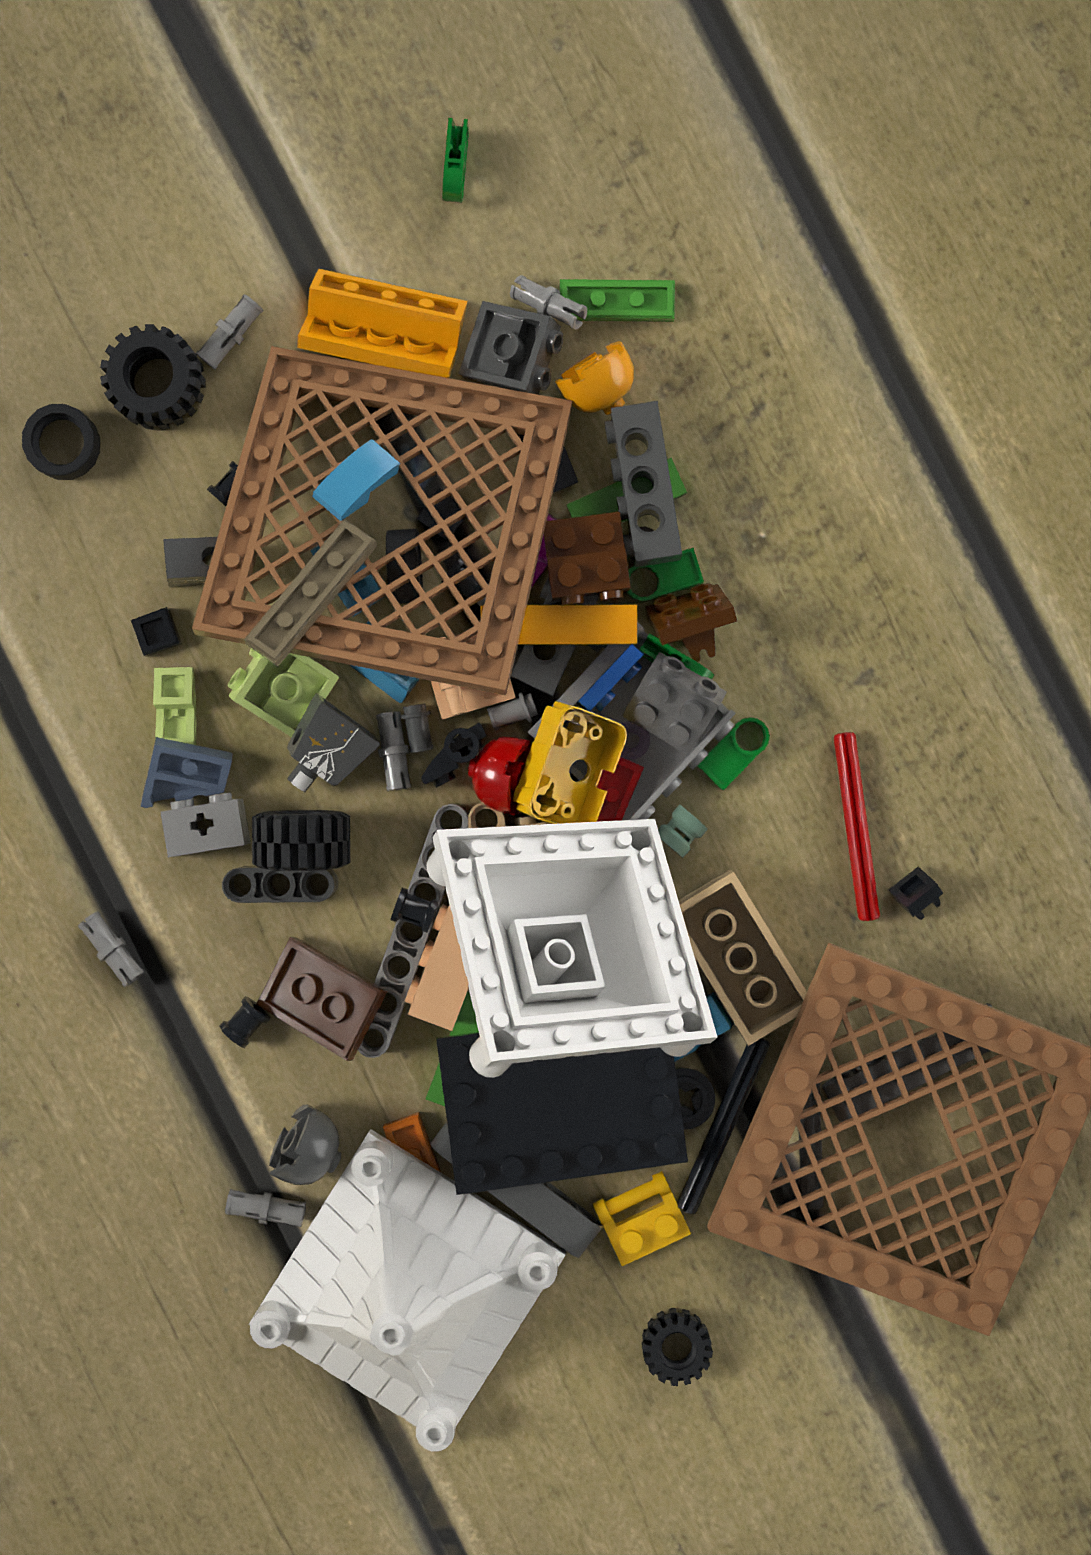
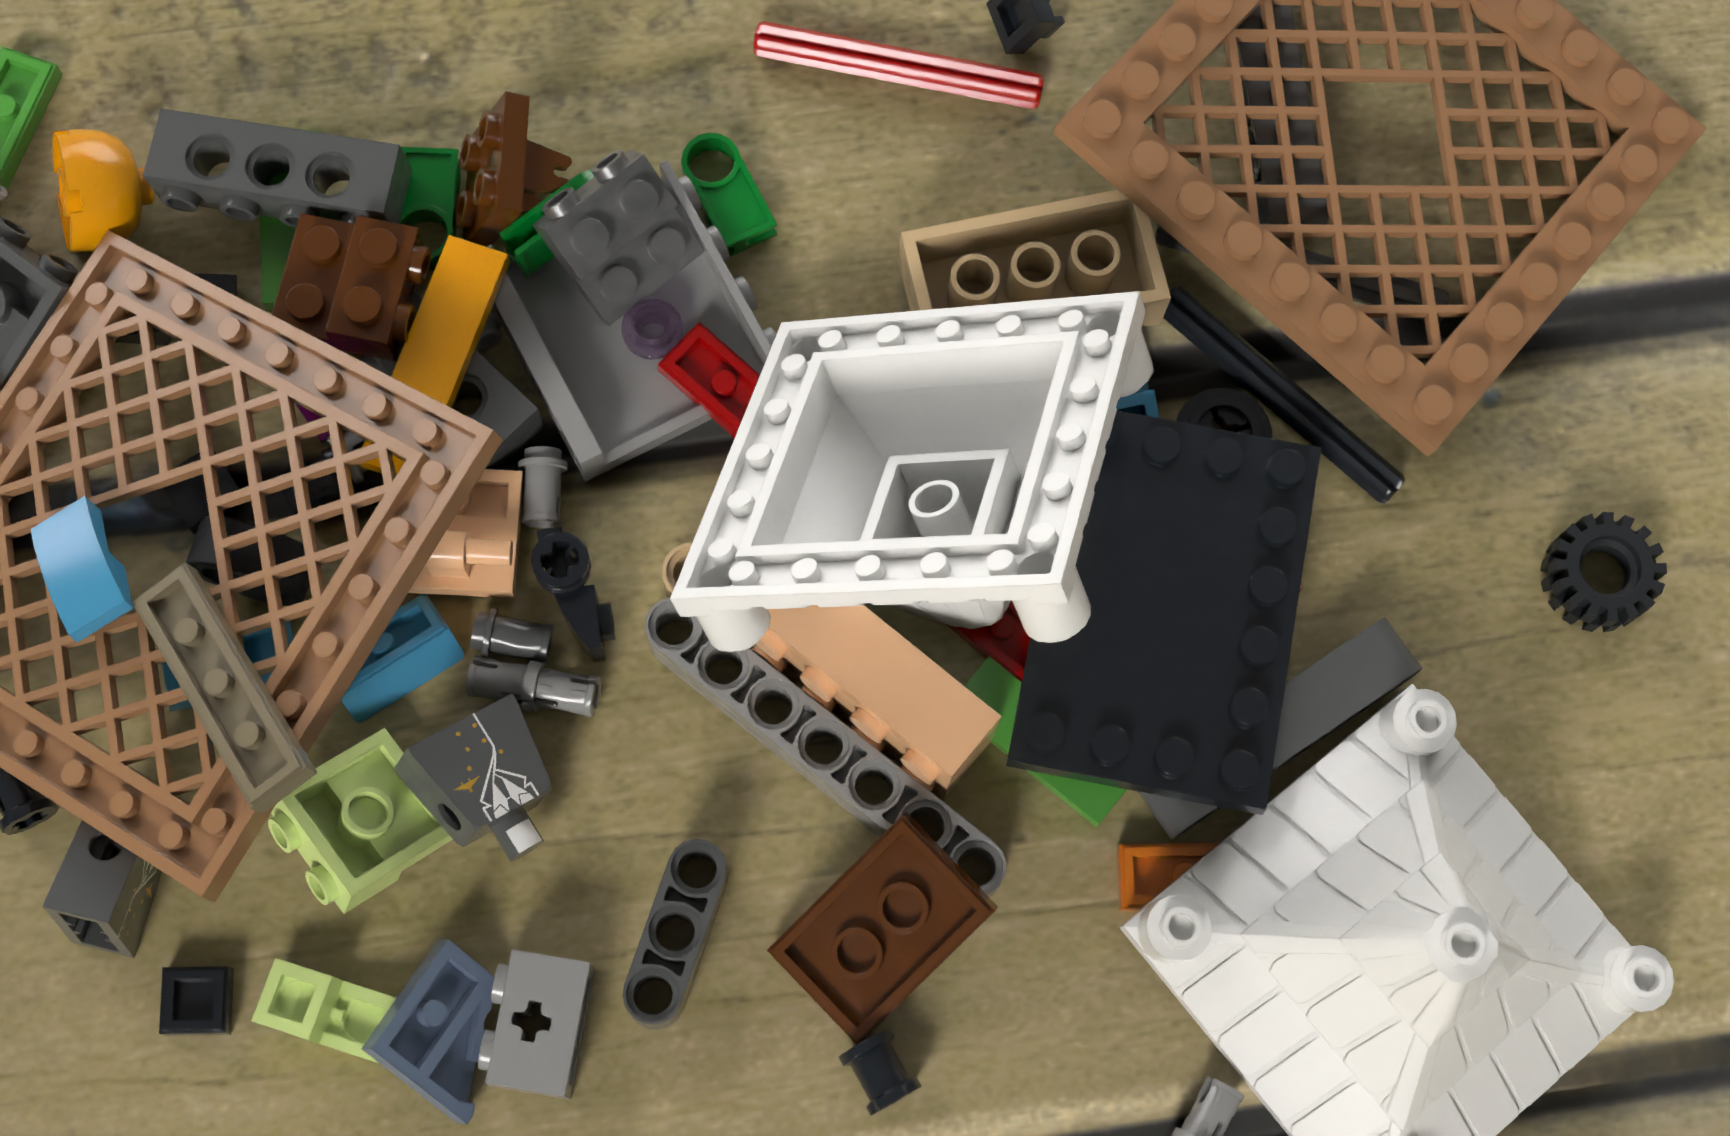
camera: 80 degrees left, 15 degrees down
(301, 840) = (614, 863): black tyre -> none
(307, 1149) = (1118, 1035): dark grey cylinder -> none
(414, 910) = (791, 719): black bush -> none
(498, 772) = (627, 526): red cylinder -> none
(552, 753) = (608, 401): yellow axle -> none
(623, 668) = (561, 335): blue plate -> none
(647, 1229) = (1407, 557): yellow plate -> none
(687, 824) = (812, 294): sand green wheel -> none

